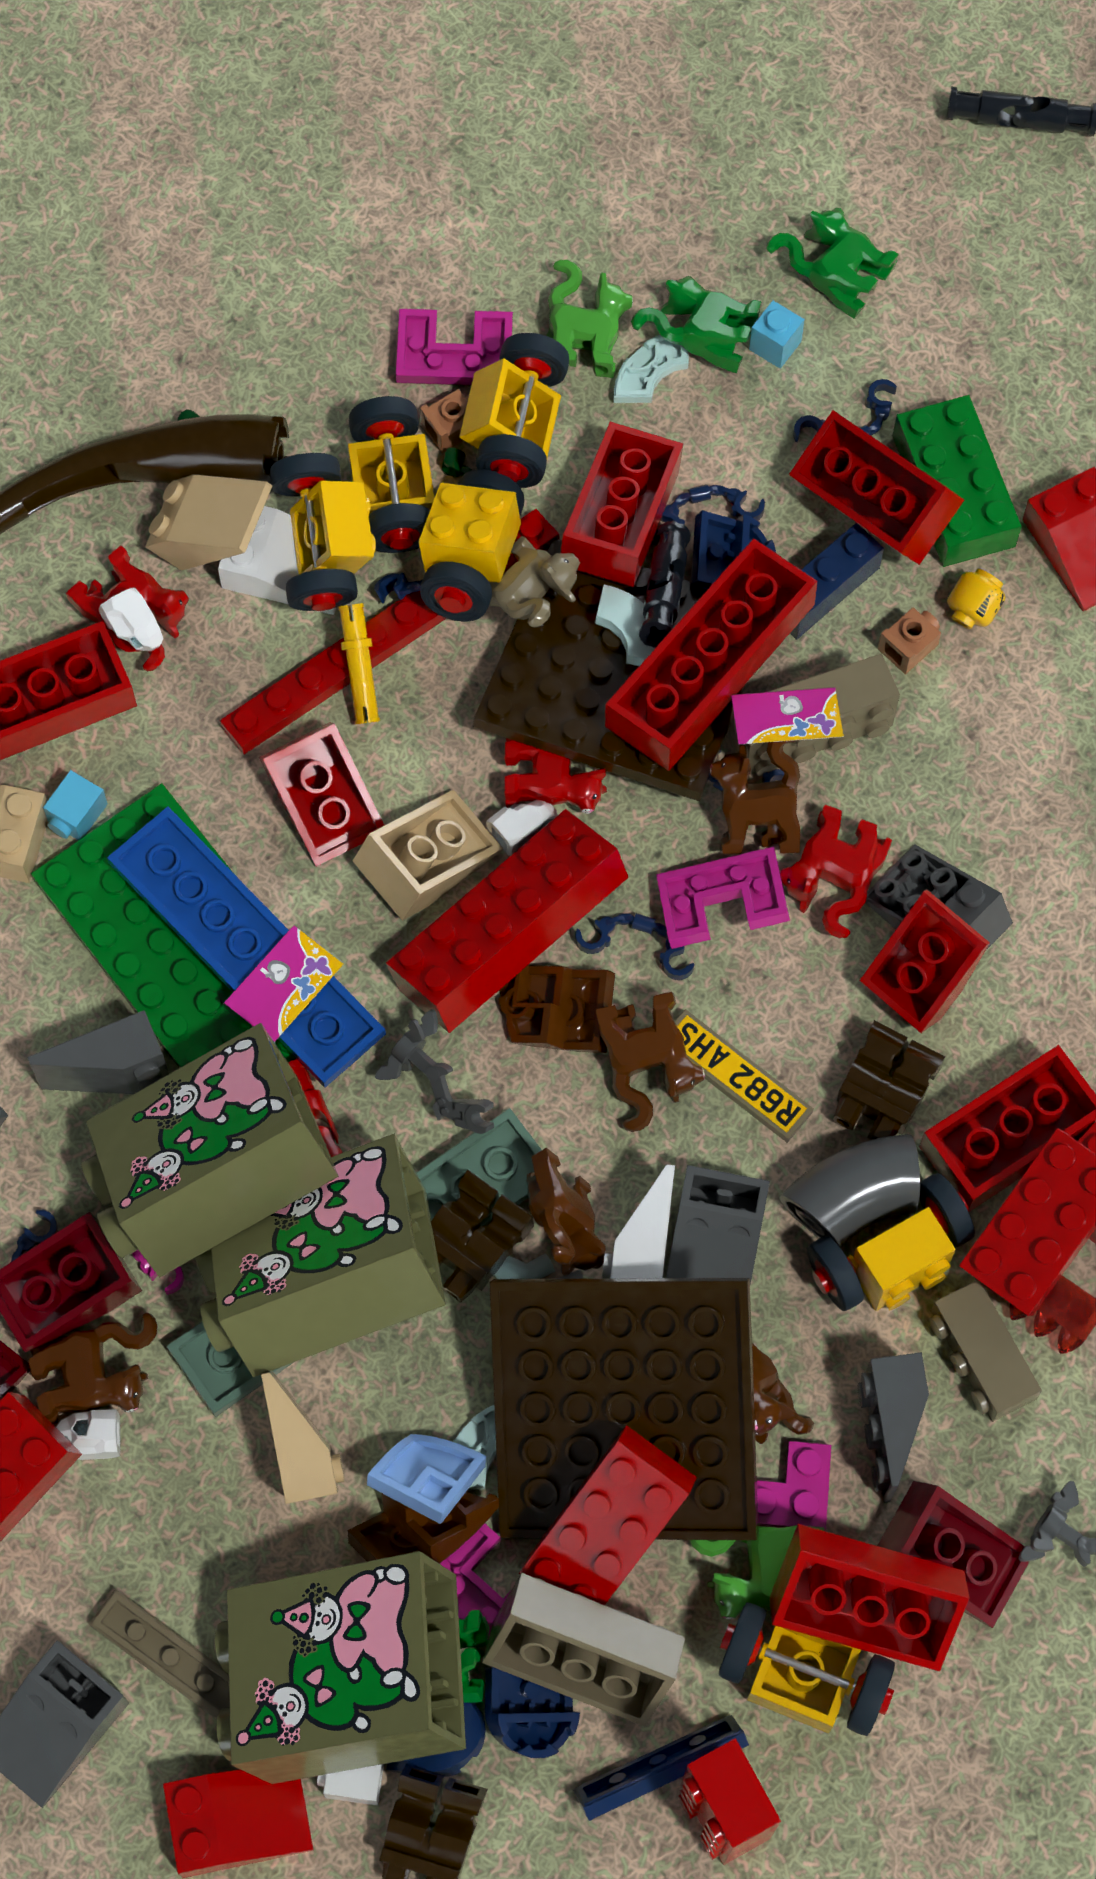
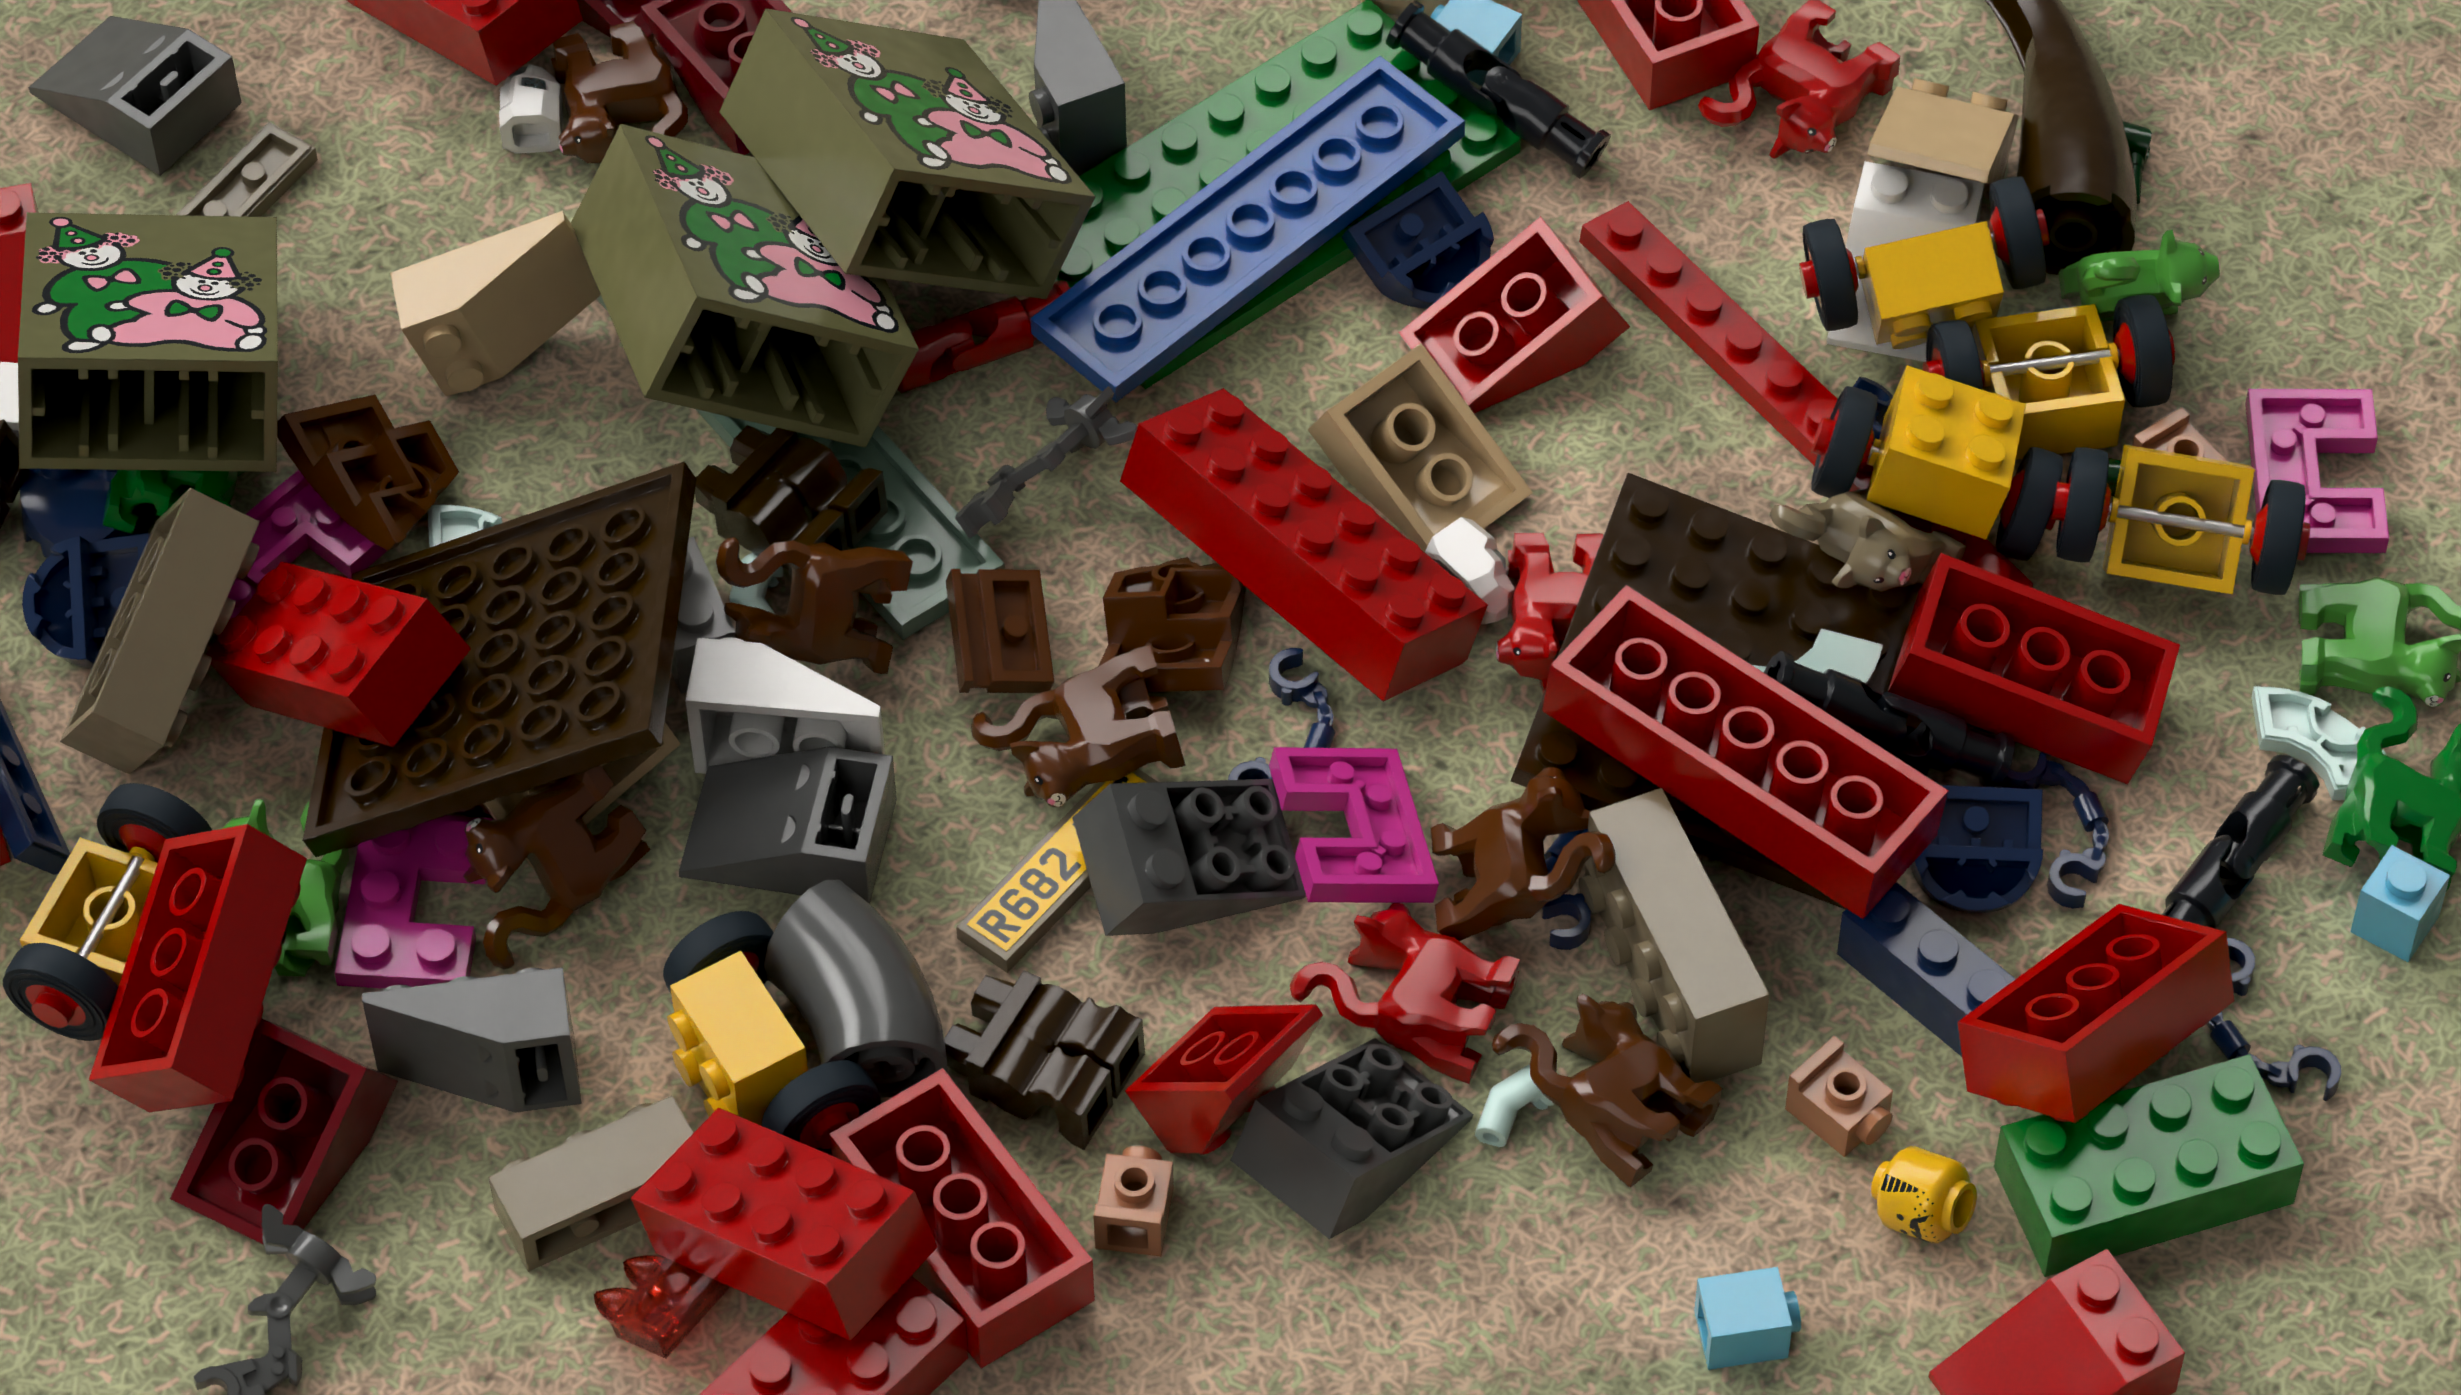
camera: 90 degrees right, 15 degrees down
(132, 620) = (1762, 59): white rock -> none
(147, 774) = (1521, 104): none -> black piece
(252, 842) = (1421, 243): none -> dark blue slope
(284, 983) = (1185, 264): sticker -> none
(326, 415) = (2170, 274): none -> bright green animal
(359, 663) = (1712, 353): yellow pin -> none
(427, 1474) = (437, 457): light blue plate -> none
(564, 1110) = (1000, 631): none -> reddish brown plate
(742, 998) = (1185, 853): none -> dark grey slope
(760, 433) = (2242, 844): none -> black piece
(787, 715) = (1638, 851): sticker -> none
(905, 818) = (1503, 1105): none -> light aqua arm
(910, 755) = (1616, 1096): none -> reddish brown animal
(997, 1045) = (1134, 1202): none -> nougat brick
(1061, 698) = (1745, 1317): none -> medium azure brick

